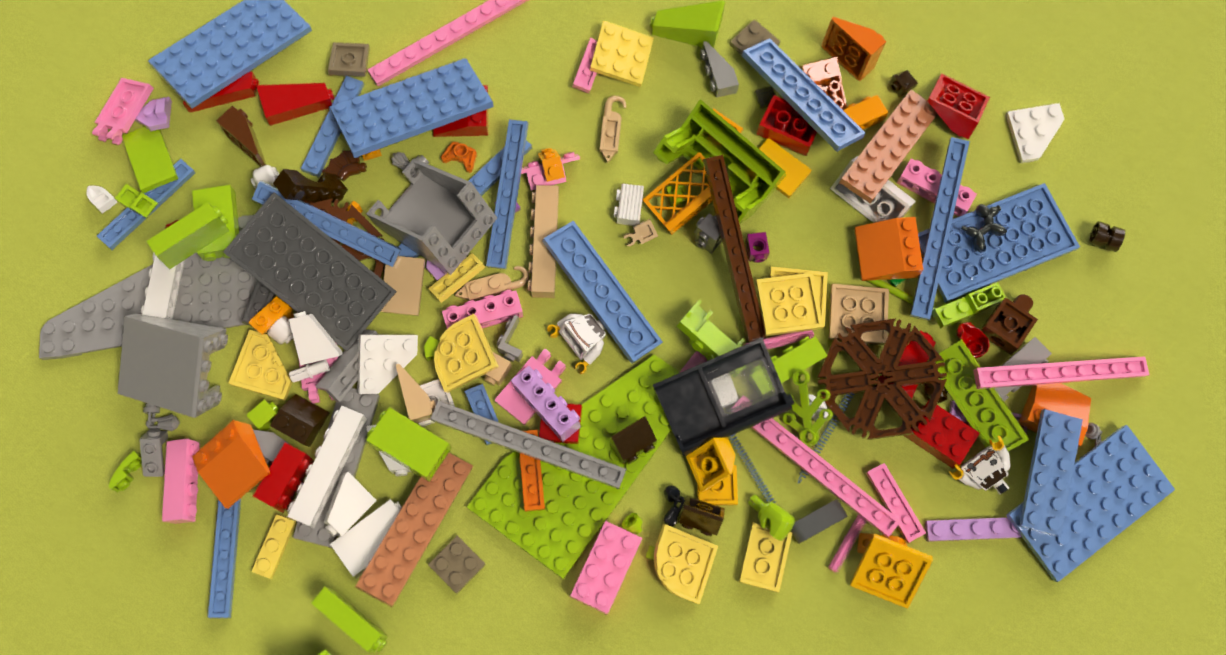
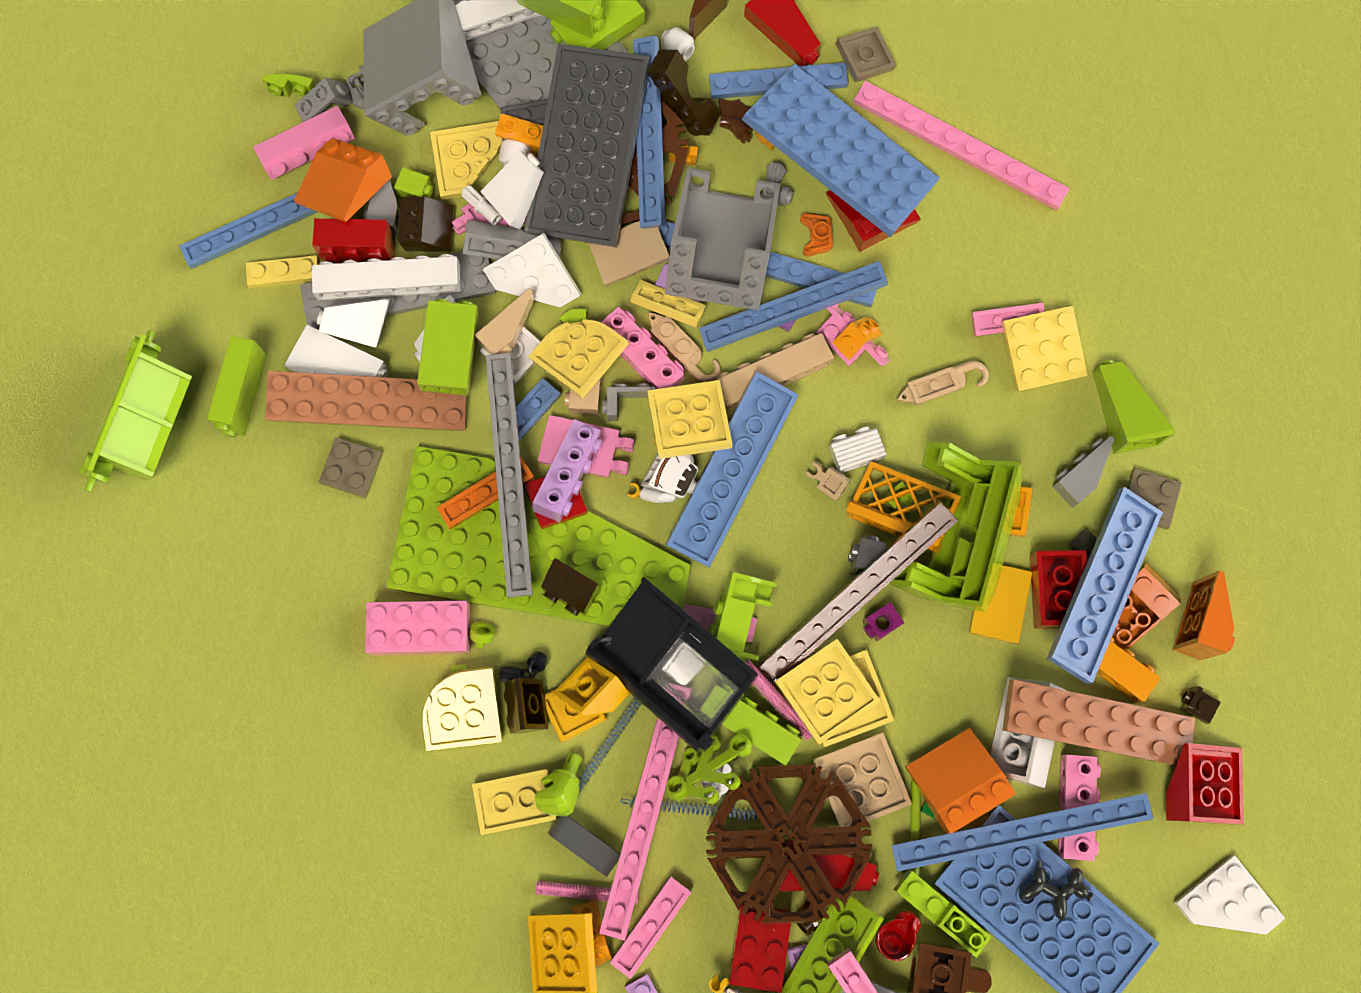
camera: 65 degrees right, 5 degrees up
(554, 300) = (689, 419): none -> light yellow plate

